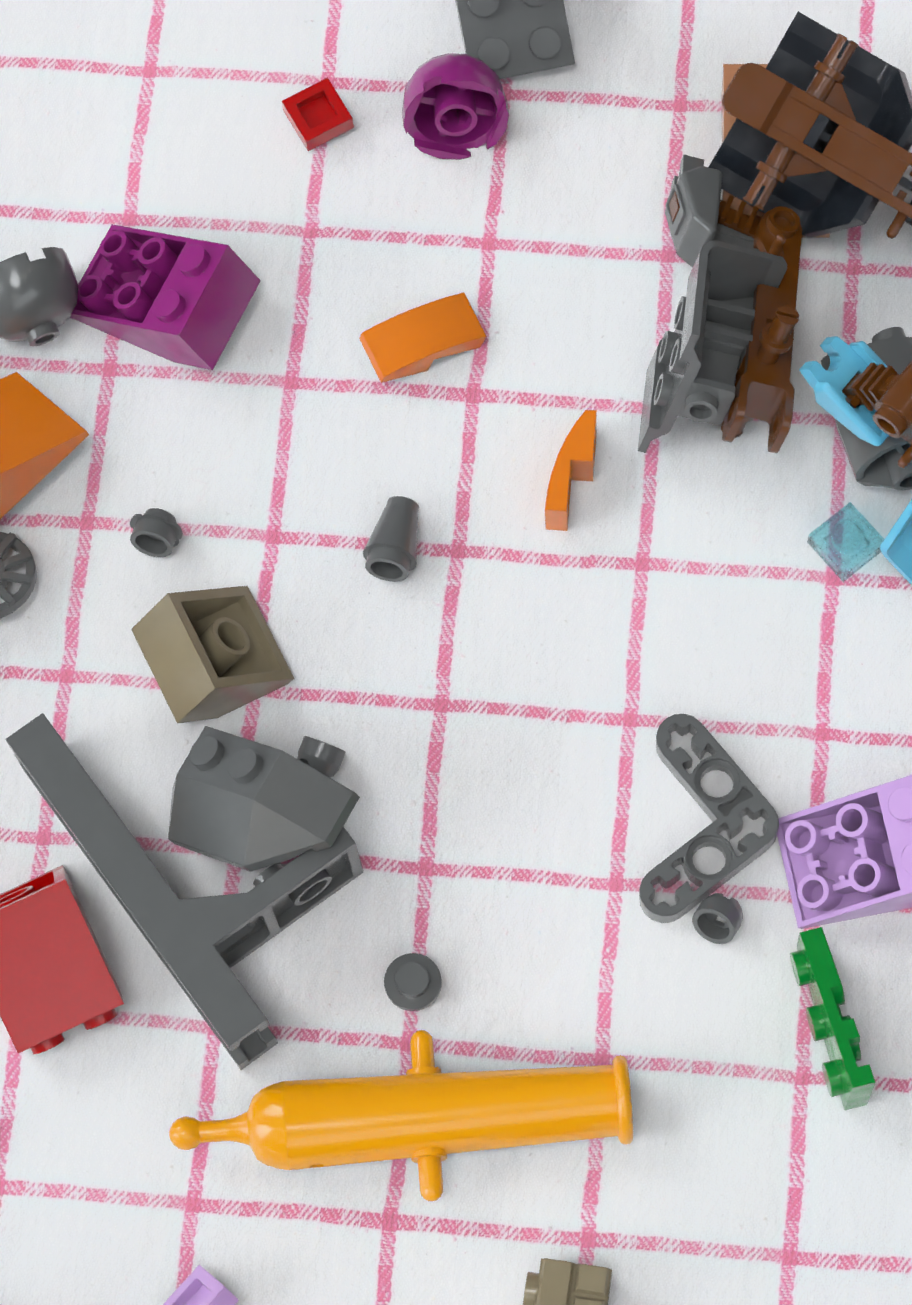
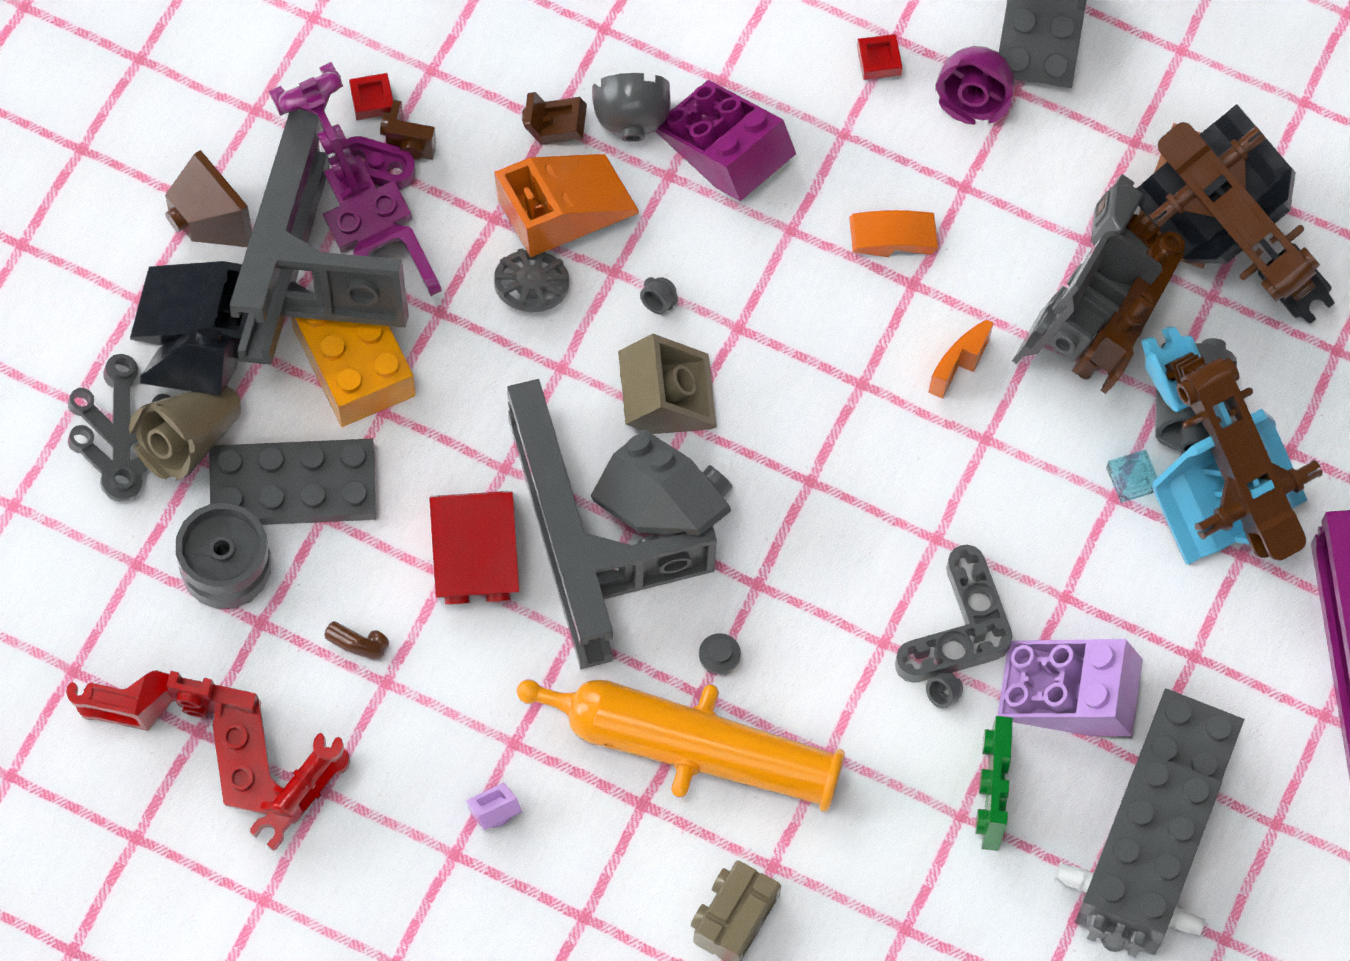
camera: 10 degrees right, 5 degrees down
(393, 543) = (819, 361): dark grey cone -> none

